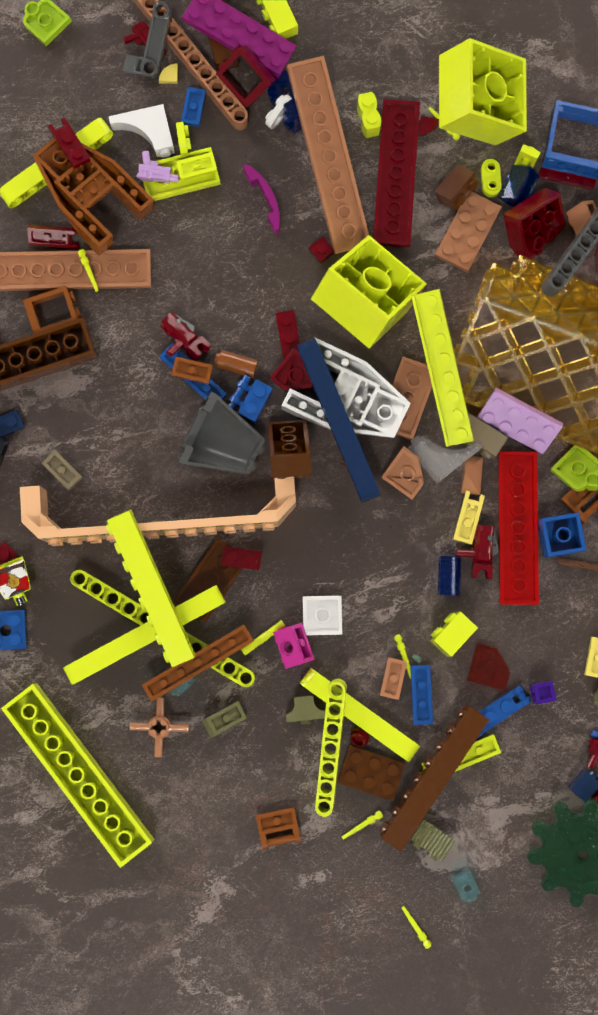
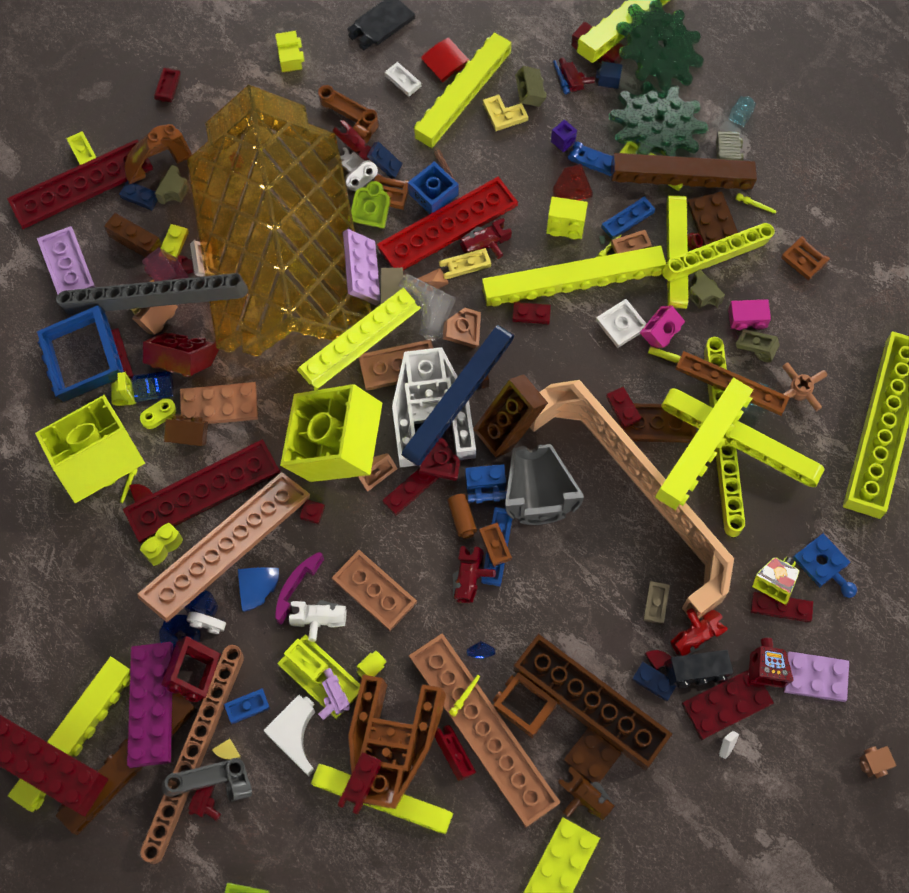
camera: 120 degrees left, 15 degrees down
(13, 479) = (700, 631): none -> red piece
(18, 441) = (657, 658): none -> dark red tile
(117, 308) = (481, 650): none -> clear blue tile
(161, 216) = (371, 664): none -> neon yellow brick
(183, 132) = (289, 688): neon yellow plate -> none
(221, 256) = (374, 590): none -> nougat plate
(229, 201) = (316, 615): none -> white piece
(256, 734) = (749, 313): none -> dark pink brick
(287, 170) = (256, 585): none -> blue brick
(323, 323) = (381, 468): none -> nougat slope
(384, 545) = (531, 313): none -> dark red plate
(394, 605) = (573, 276): none -> neon yellow brick
(421, 935) = (800, 120): neon yellow piece -> none
(449, 576) = (523, 252): clear blue brick -> none
(483, 790) = (652, 136): none -> clear green plate

